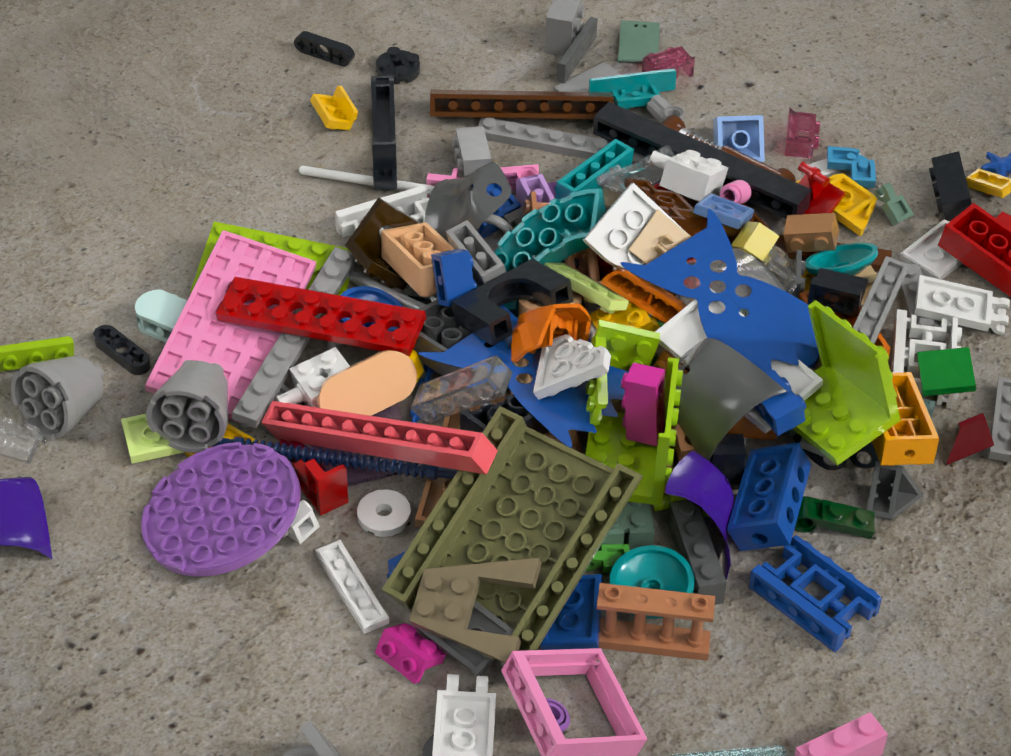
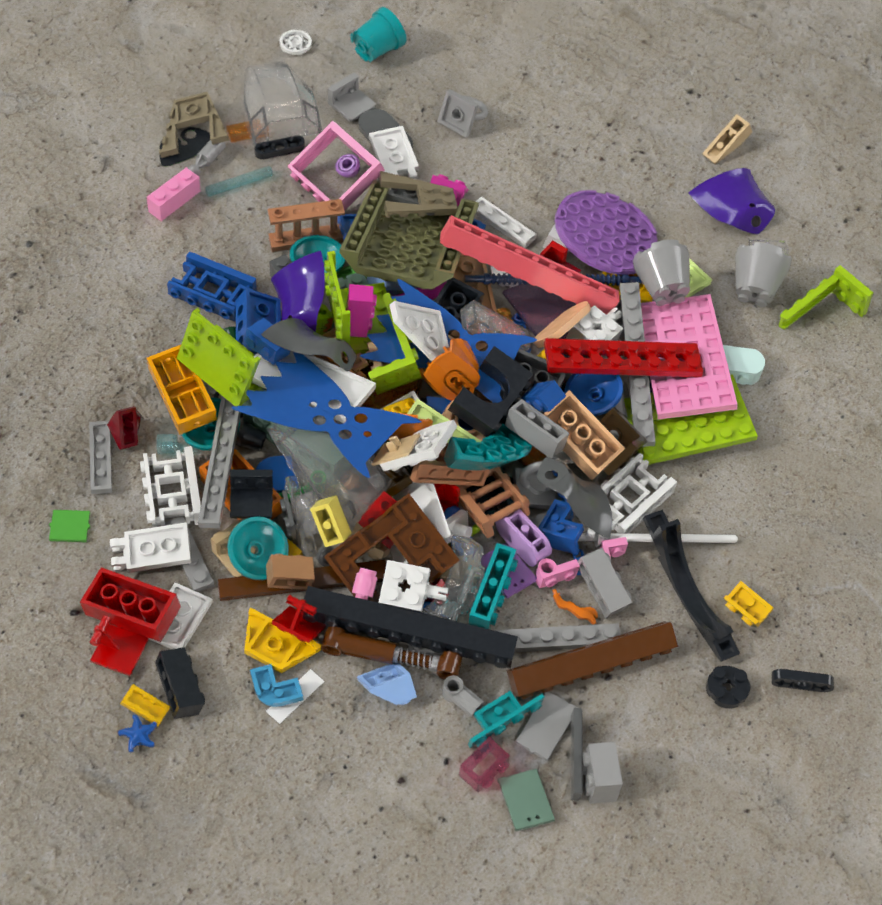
camera: 155 degrees right, 10 degrees up
(125, 358) = (759, 334): black beam -> none
(509, 150) = (584, 613): none -> orange hair
(727, 211) = (366, 547): medium blue tile -> none
(801, 145) = (337, 728): clear pink window -> none
(894, 207) = (227, 642): sand green plate -> none
(946, 371) = (152, 463): green tile -> none

